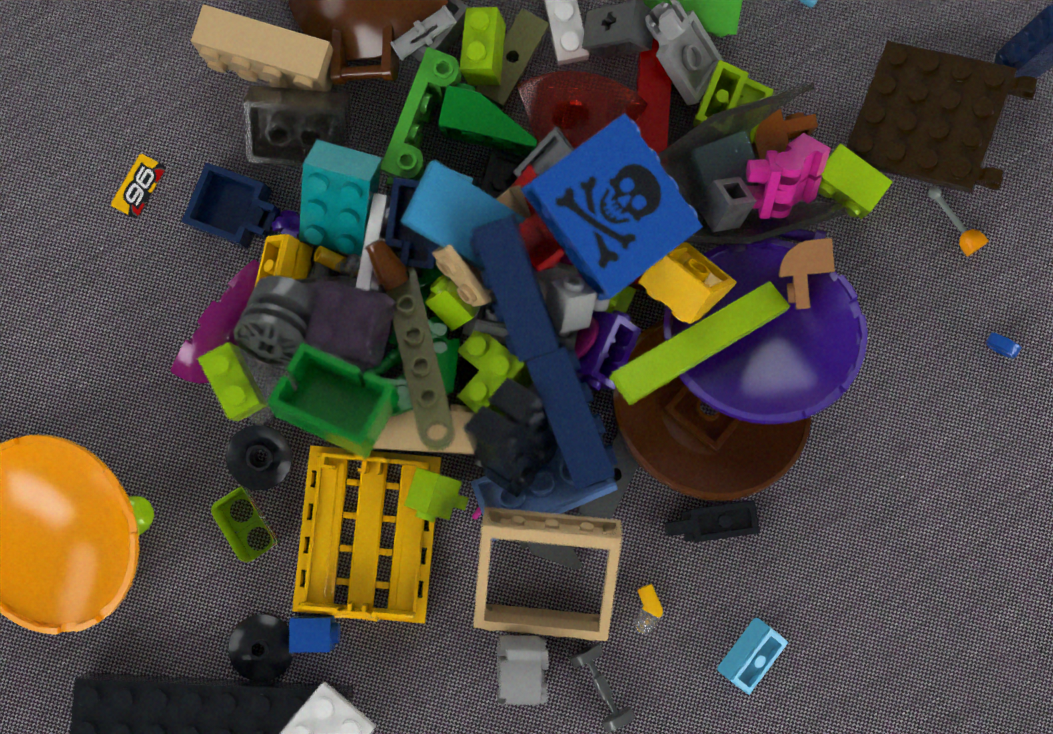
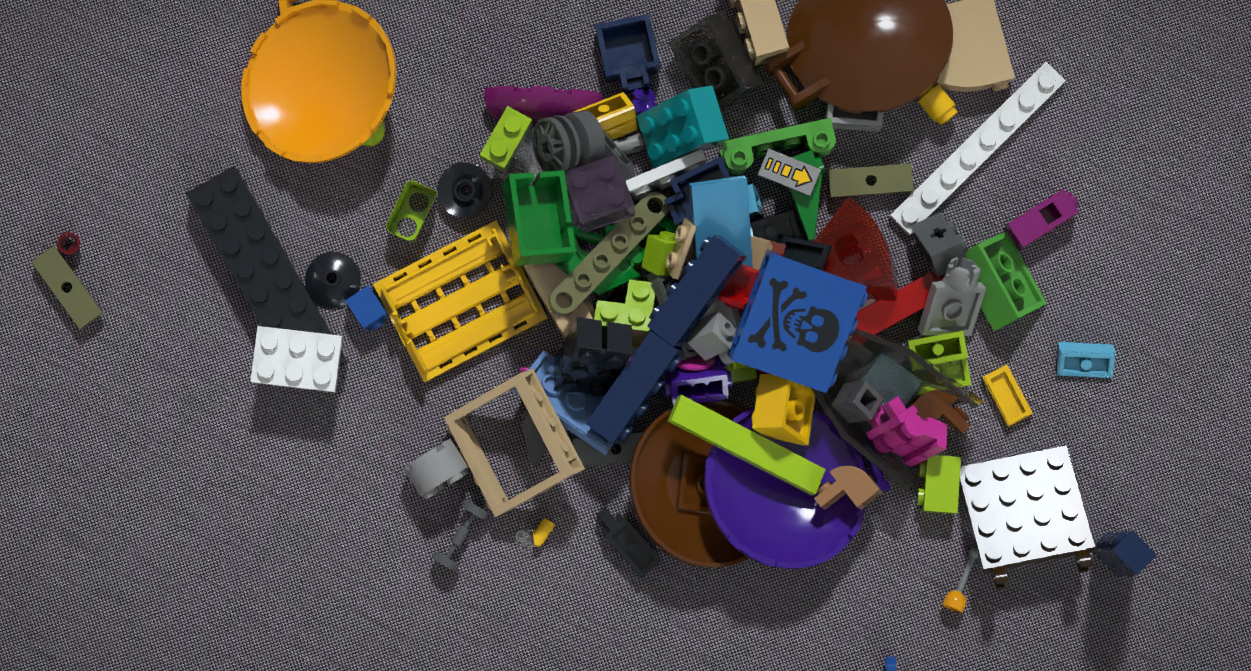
camera: 55 degrees right, 0 degrees up
(337, 262) = (638, 156): arm -> none
(386, 265) = (655, 192): reddish brown cone -> none
(434, 495) = (518, 330): lime brick -> none
(435, 23) = (838, 108): light grey pin -> none
(455, 120) = (789, 172): none -> light grey tile
(482, 46) = (861, 155): lime brick -> none
(752, 655) = (550, 630): medium azure slope -> none
(802, 65) = (1007, 395): none -> yellow tile

